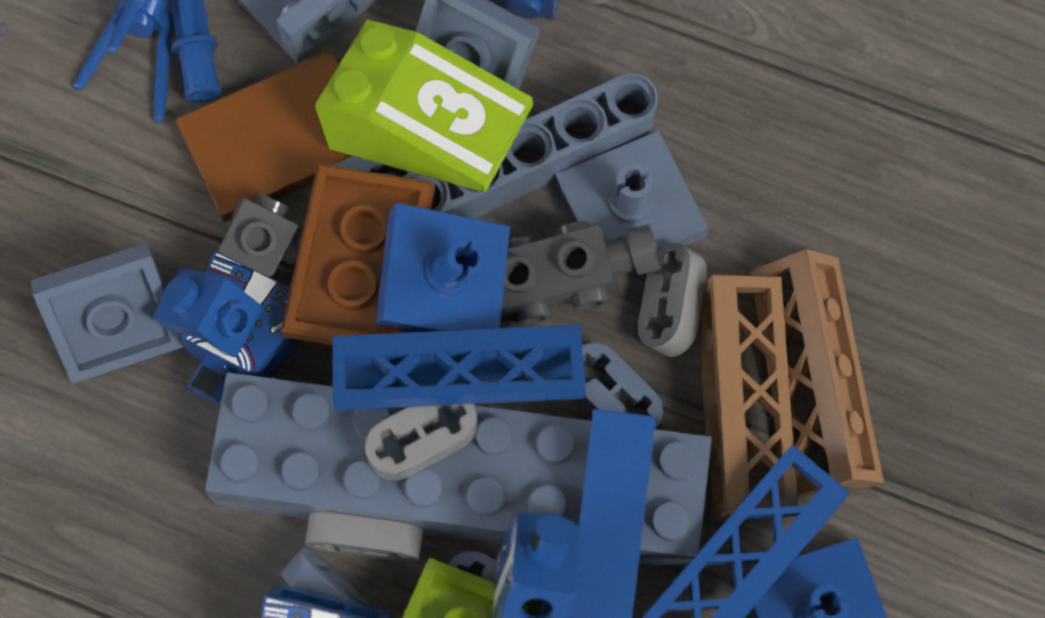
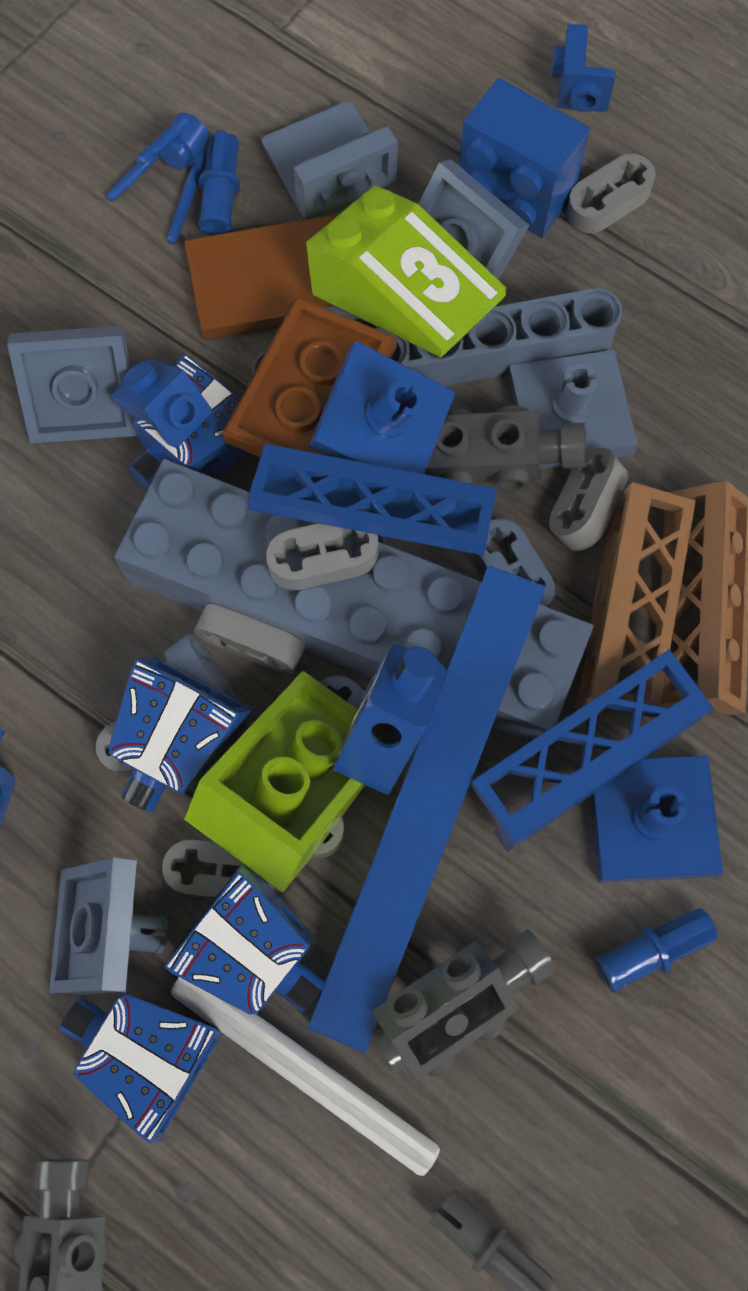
camera: 15 degrees right, 0 degrees up
(259, 234) = (227, 347): dark grey bracket -> none

